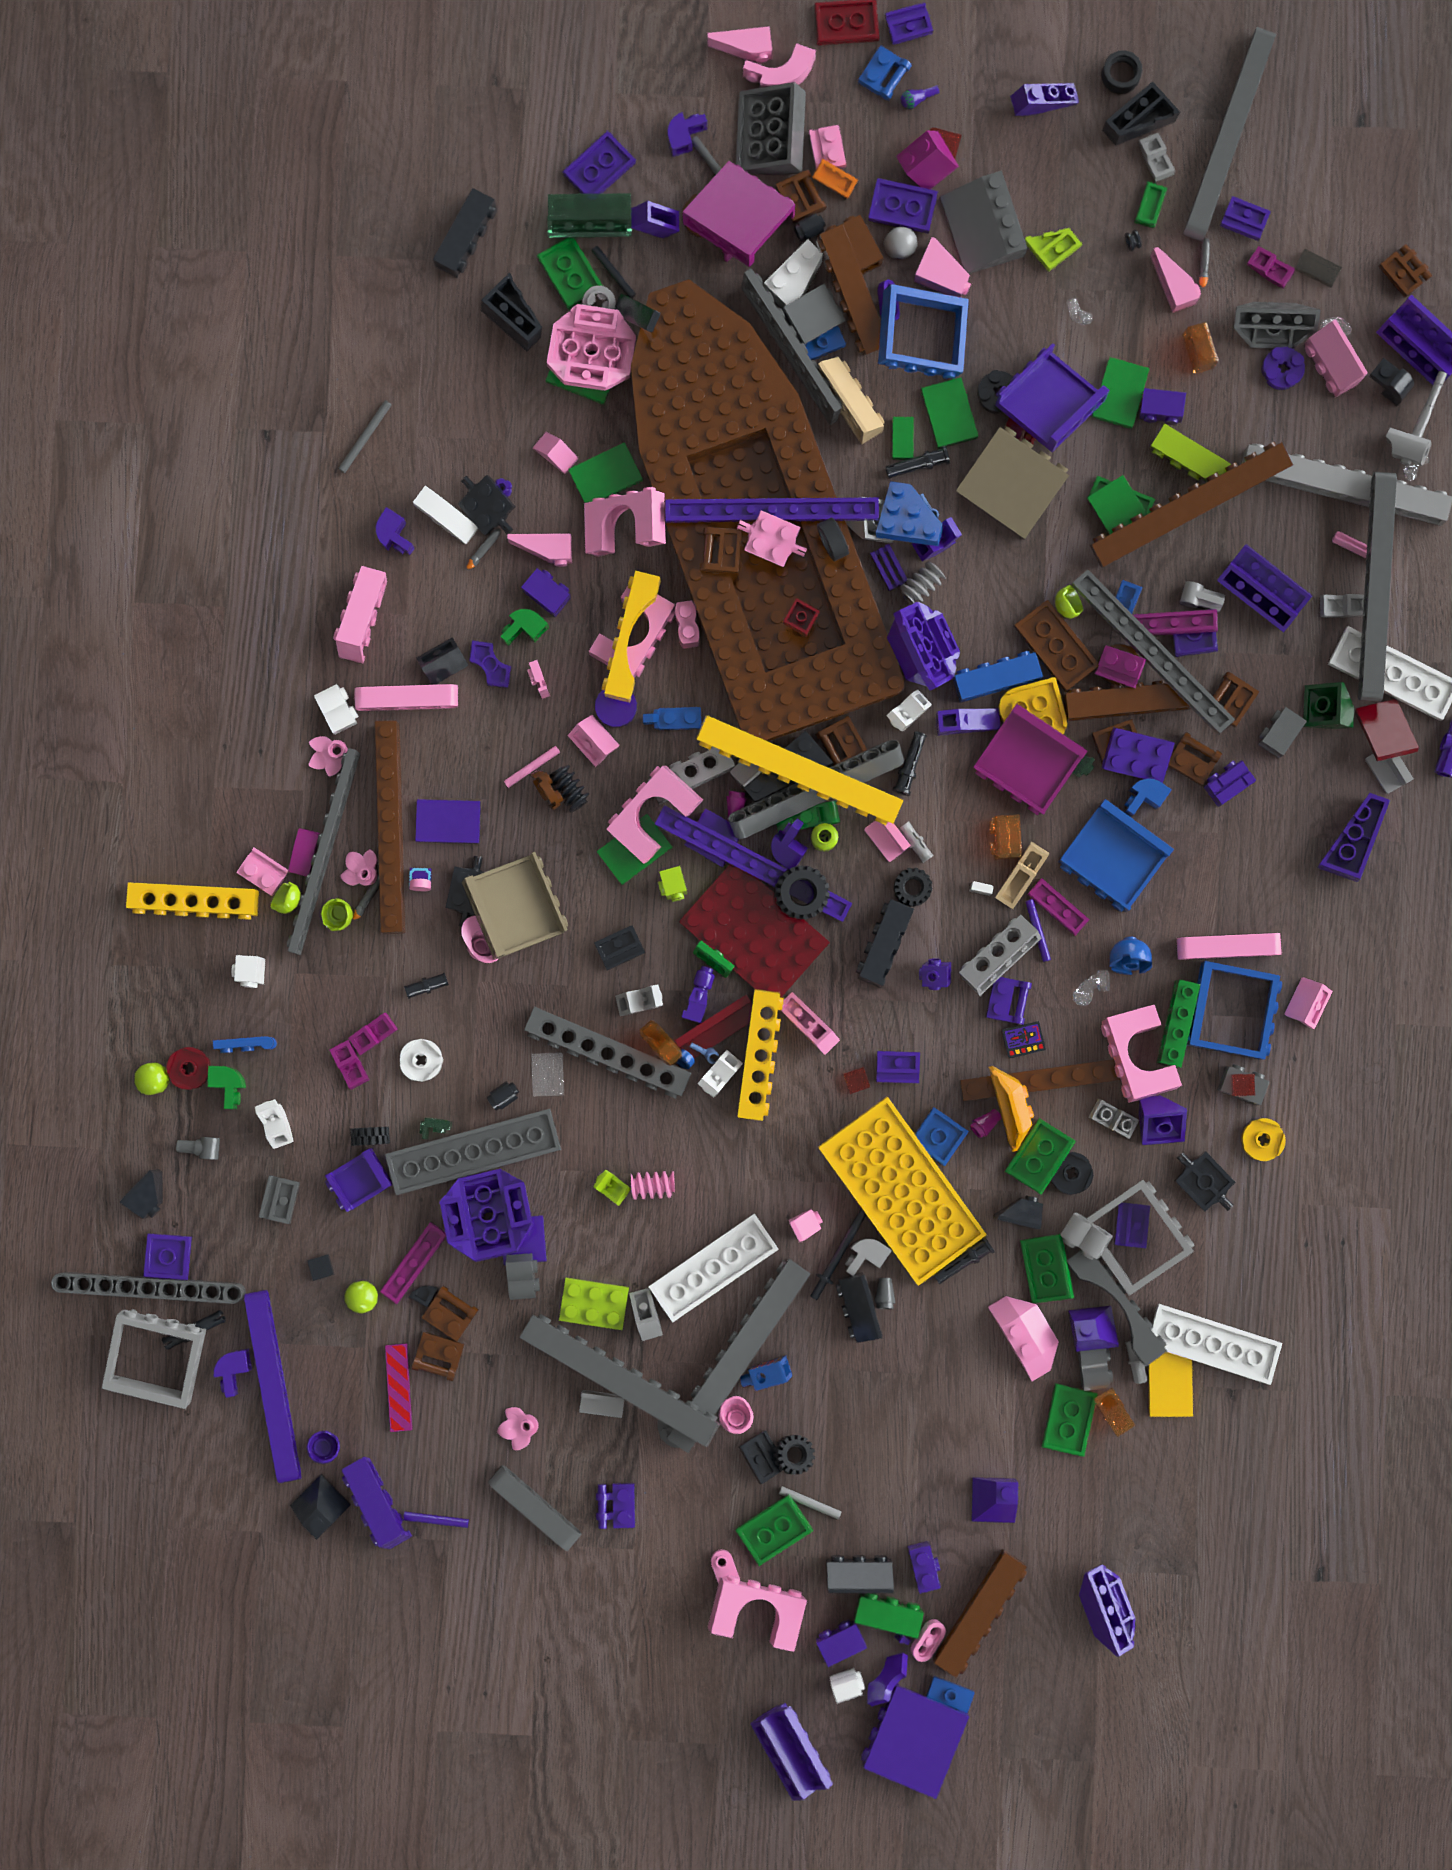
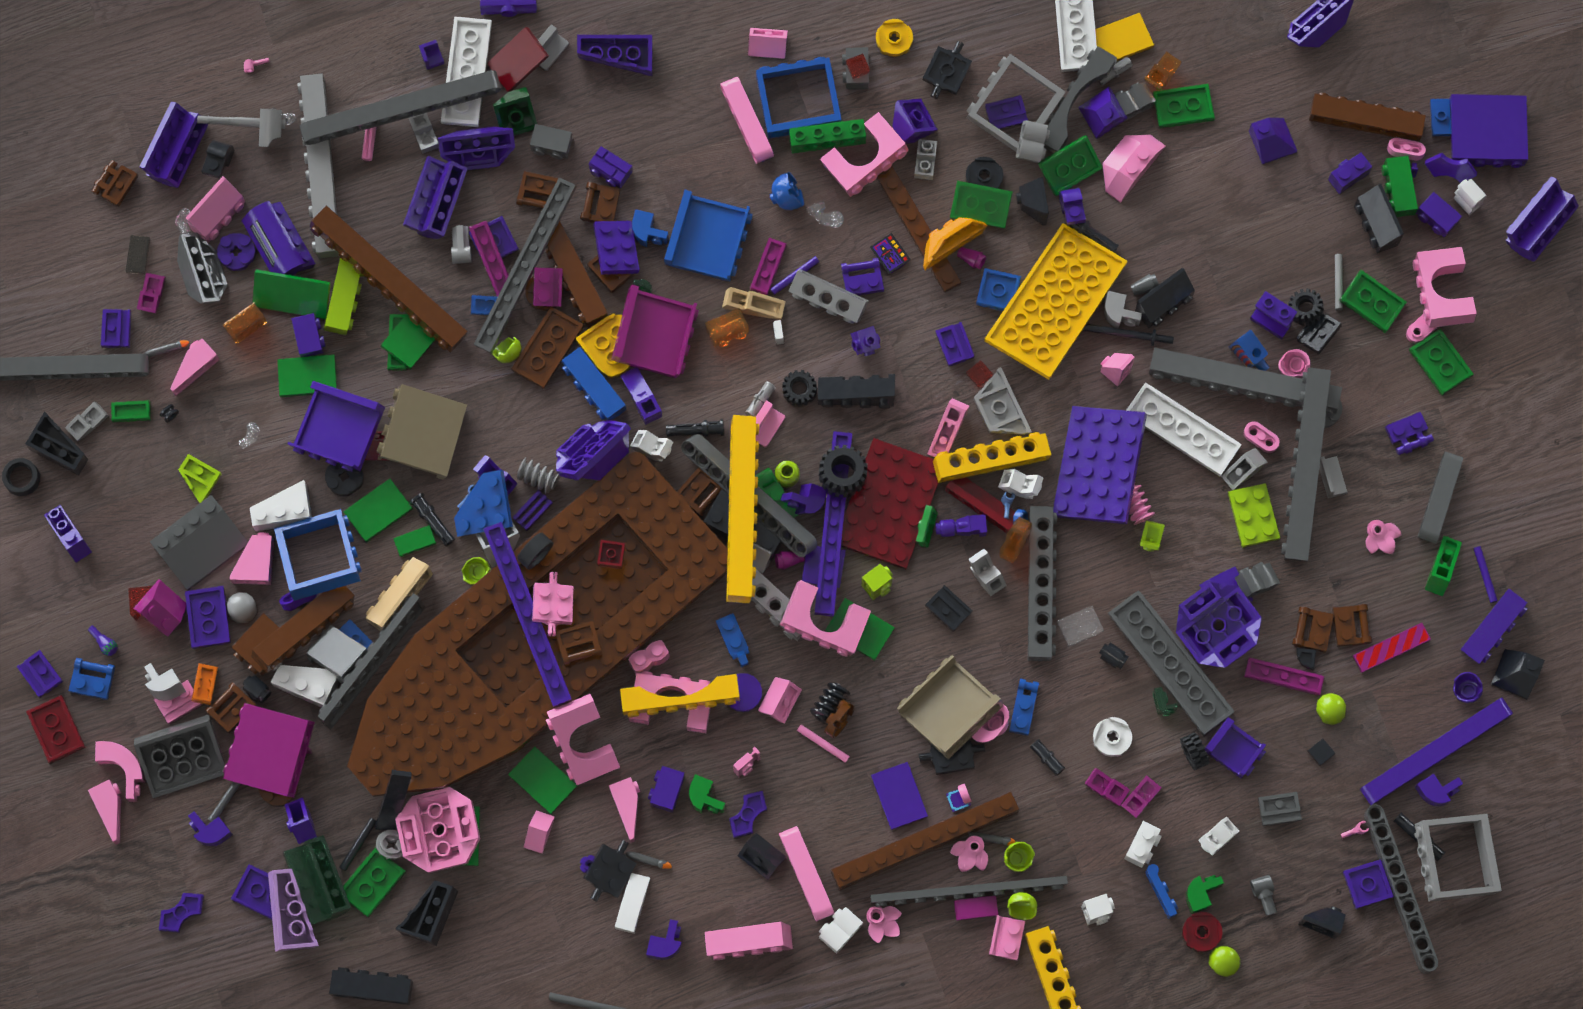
camera: 110 degrees left, 10 degrees down
(227, 1267) = (1357, 829): none -> bright pink hand
(298, 1044) = (1142, 844): none -> white brick
(461, 1478) = (1443, 566): none -> green slope
(487, 983) = (1023, 708): none -> blue plate
(564, 176) = (289, 913): none -> lavender wedge
(617, 89) = (189, 906): none -> dark purple tile
(673, 1347) = (1262, 436): none -> bright pink plate
(680, 1574) = (1441, 362): none -> green tile
(707, 1163) = (1099, 464): none -> dark purple plate
(796, 1414) = (1273, 315): none -> dark purple panel
(811, 1086) = (1000, 407): none -> light grey wing
(845, 484) = (475, 570): none -> lime hair
(847, 135) = (165, 686): none -> brick
(986, 318) = (282, 509): none -> white wedge
(999, 1251) = (1072, 206): none -> dark purple brick
(1214, 403) = (291, 294): none -> green tile
(1278, 412) = (277, 239): none -> dark purple brick
(1304, 651) = (477, 147): none -> dark purple wedge
(1426, 643) = (431, 54): none -> dark purple panel

